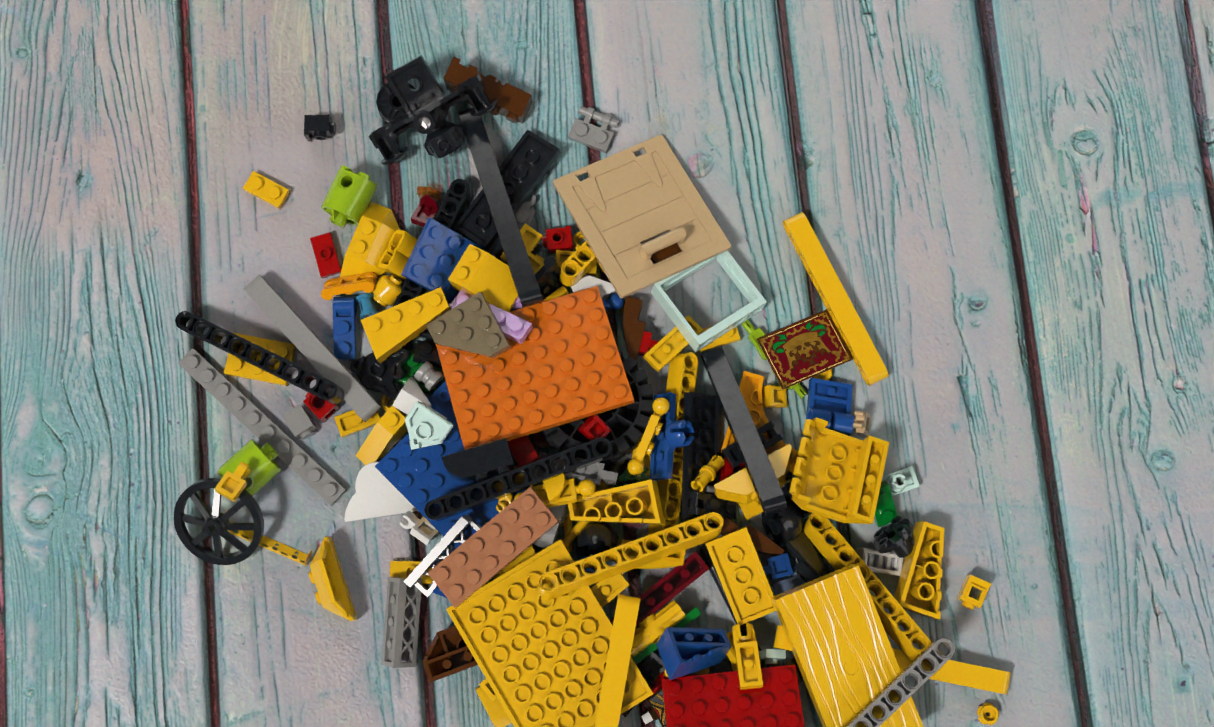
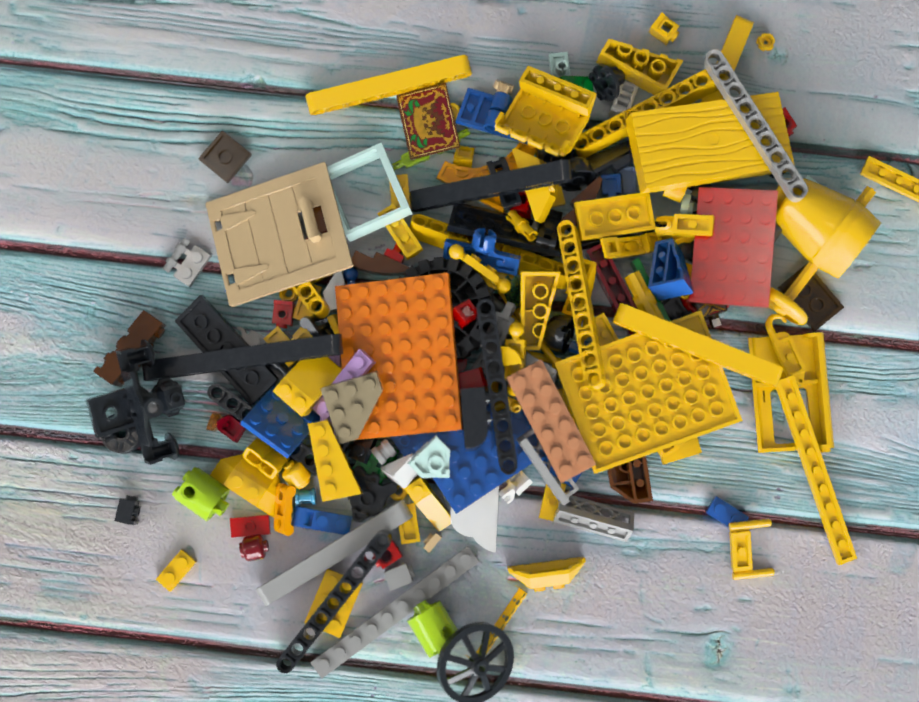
camera: 80 degrees left, 5 degrees up
(233, 484) = (448, 641): yellow plate -> none
(302, 263) = (253, 548): none -> dark red head
(343, 448) = (431, 541): none -> tan plate
(711, 598) = (628, 246): none -> yellow slope
(715, 143) = (225, 156): none -> dark brown plate

